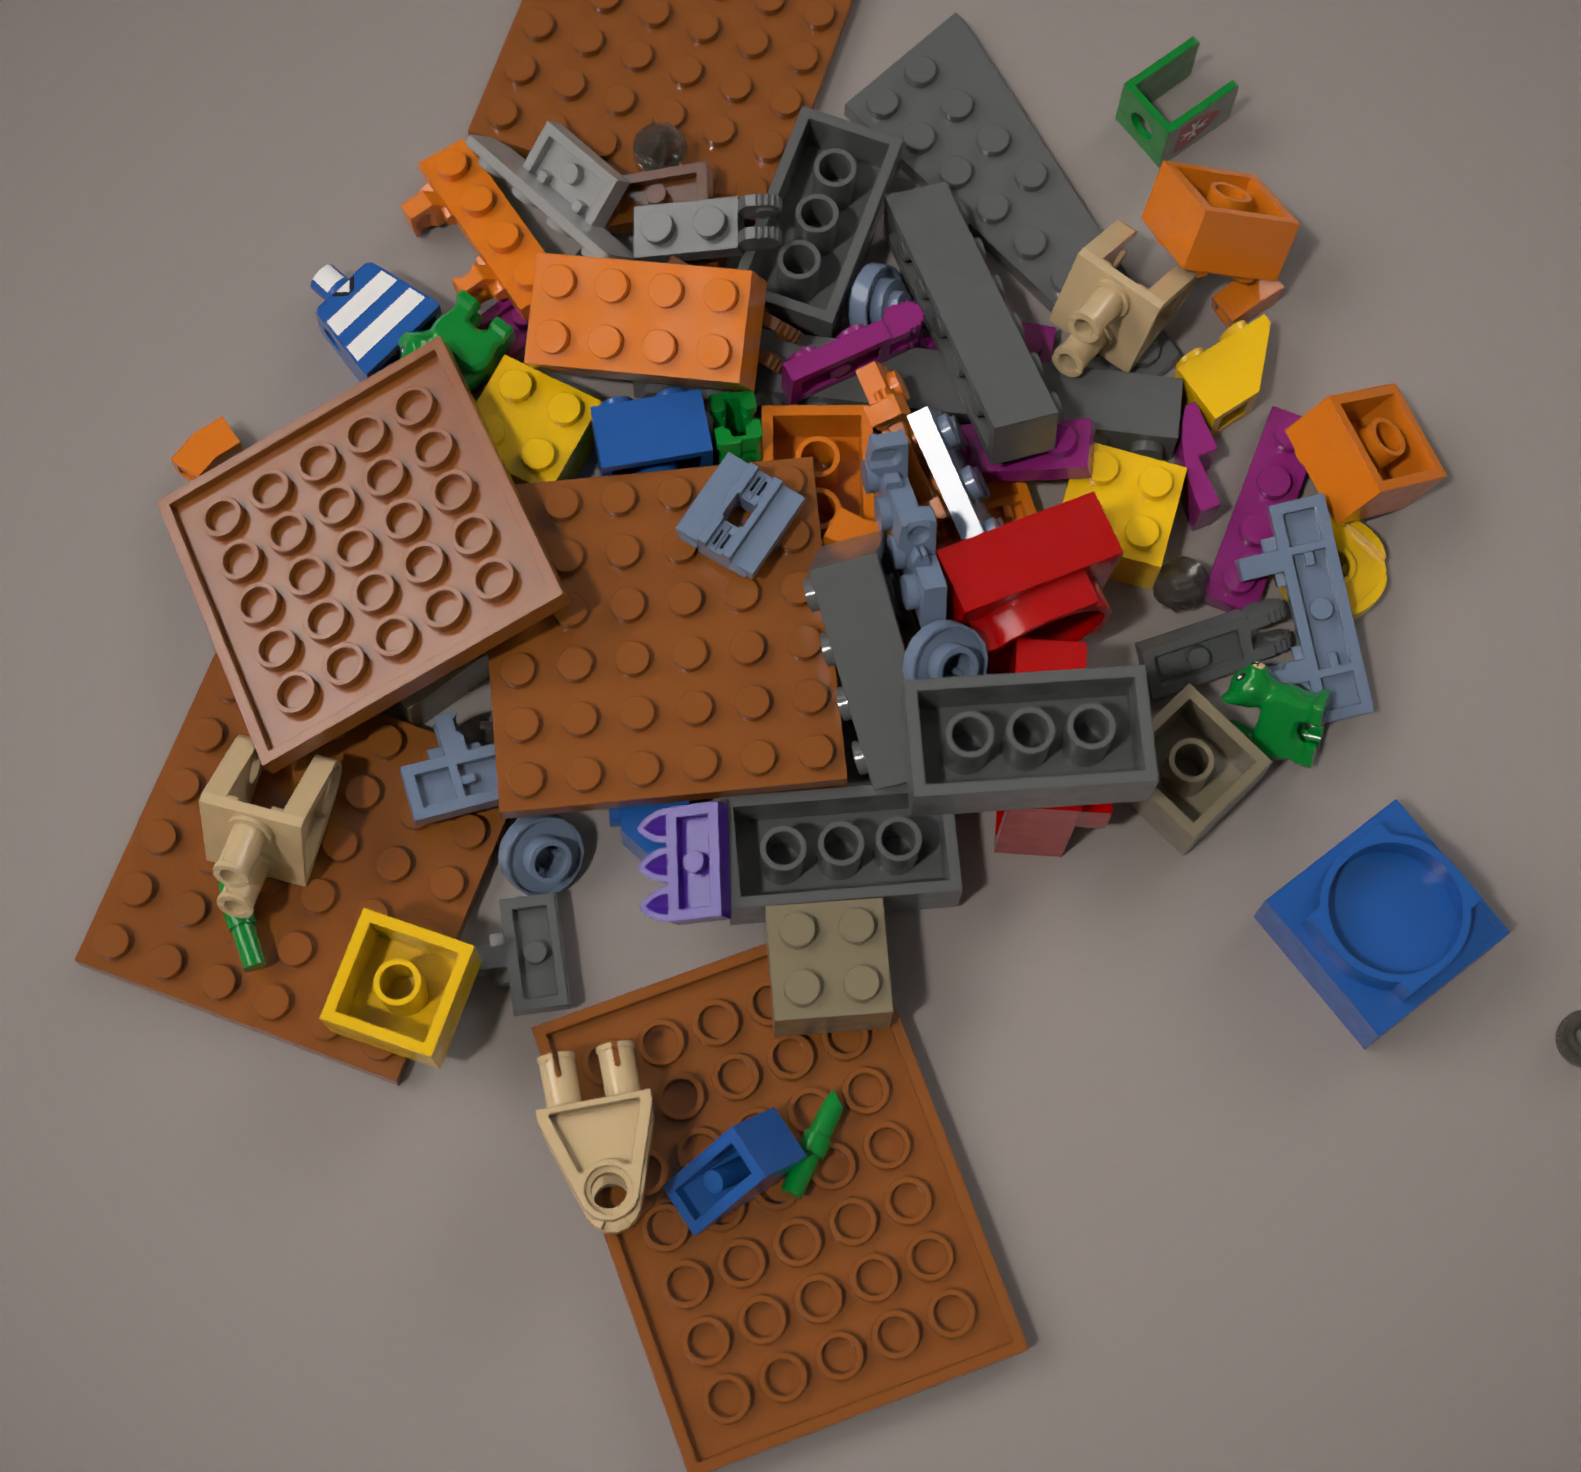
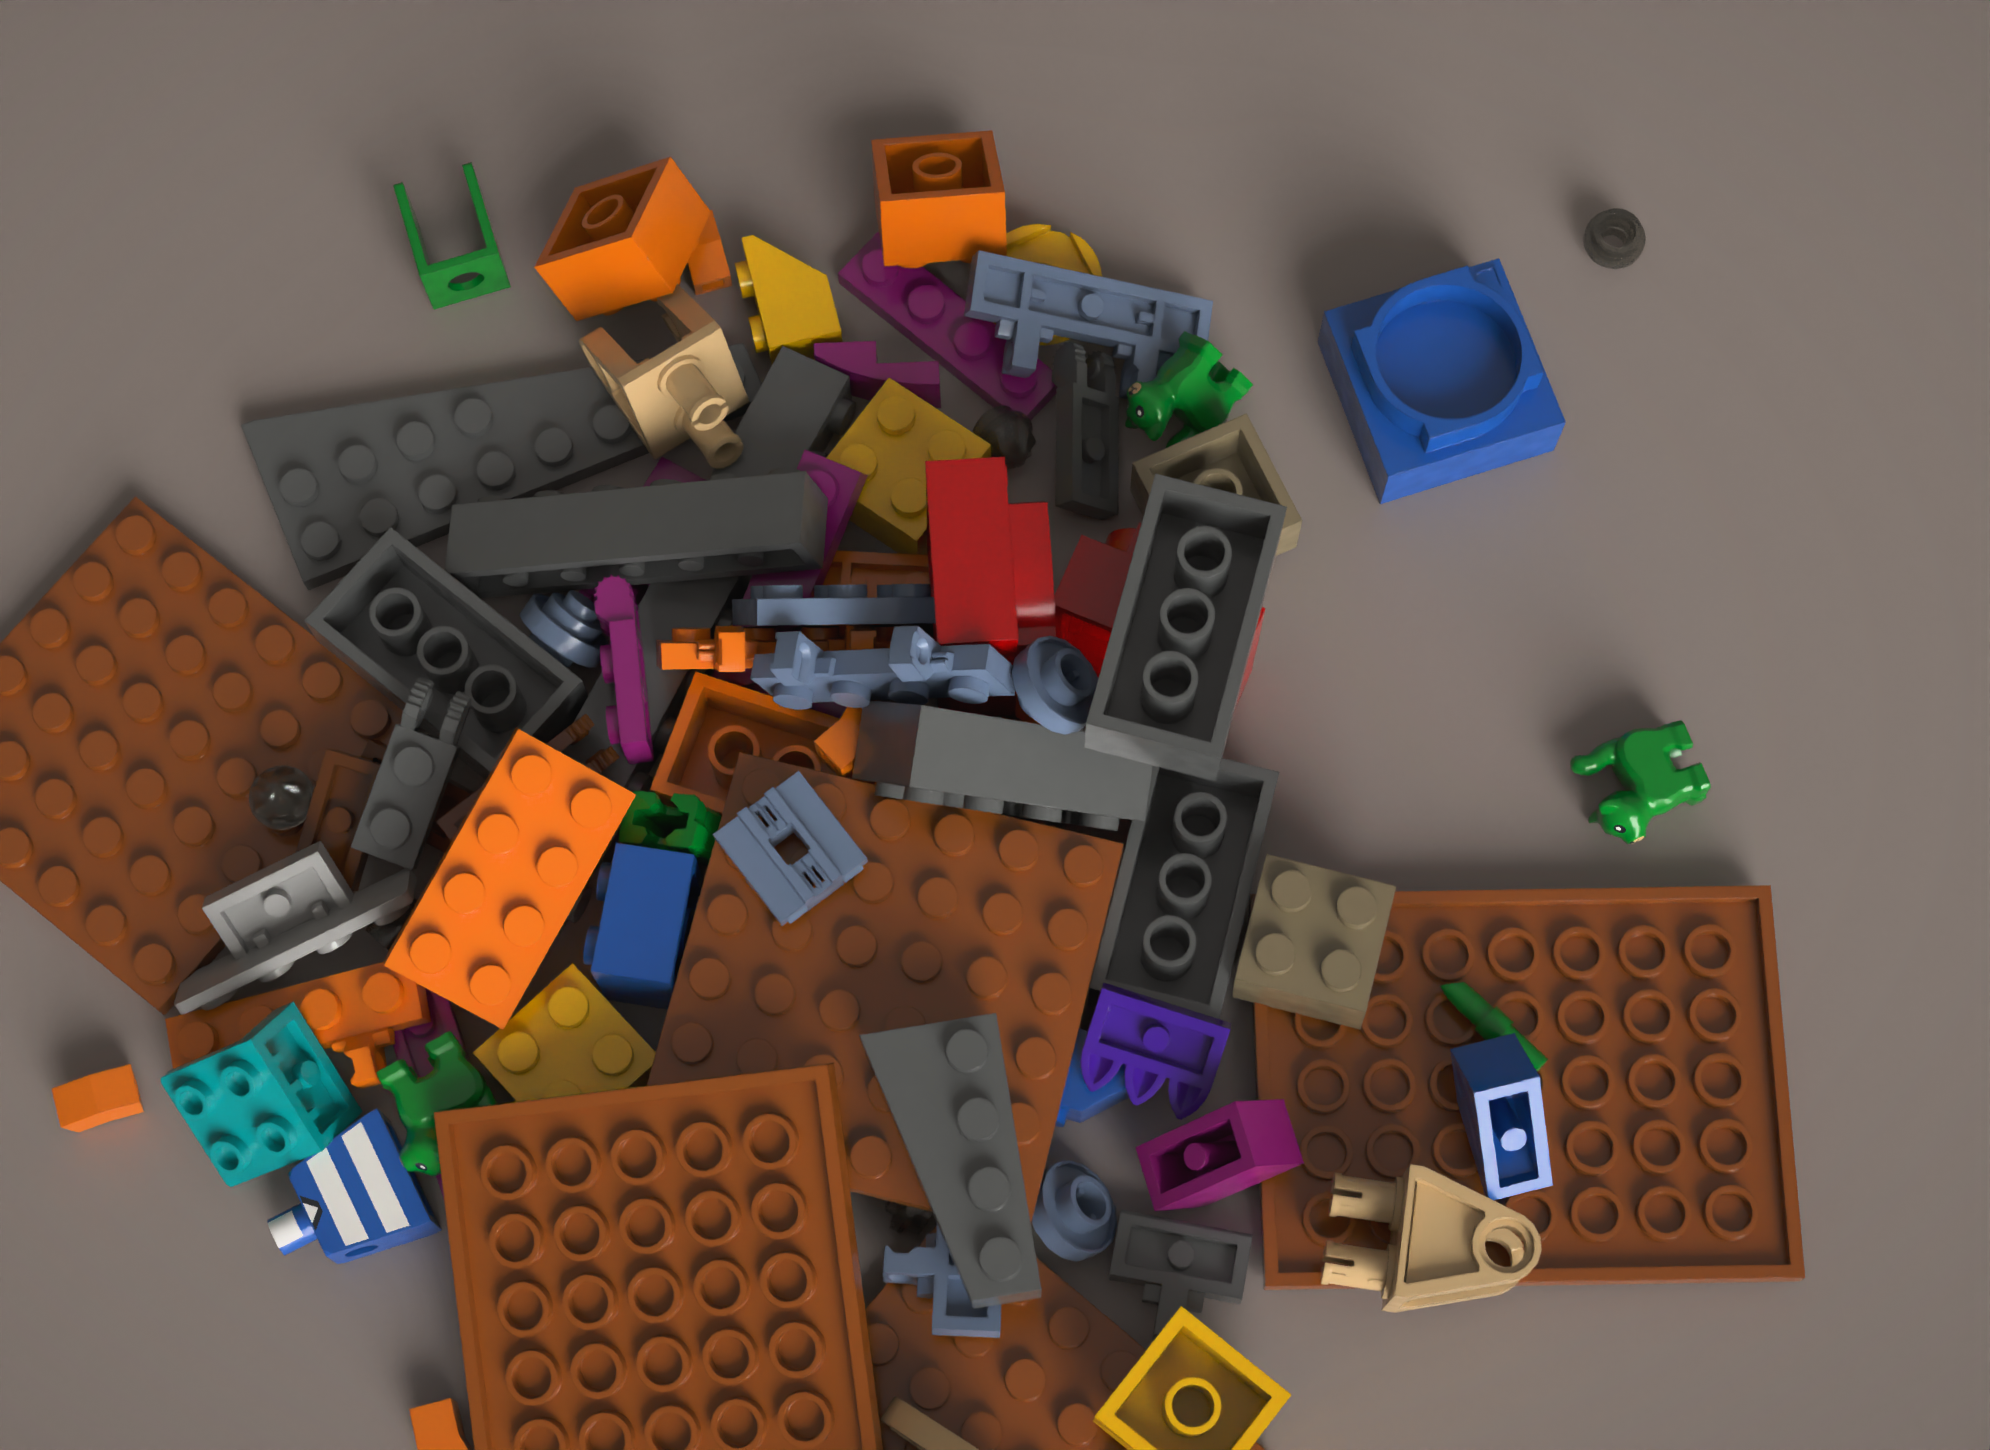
camera: 65 degrees left, 0 degrees up
(386, 116) = (97, 1099): none -> orange piece
(423, 225) = (263, 1098): none -> teal bracket
(537, 730) = (960, 1134): none -> dark grey wedge
(621, 949) = (1219, 1154): none -> magenta brick
(1082, 1222) = (1647, 775): none -> green animal

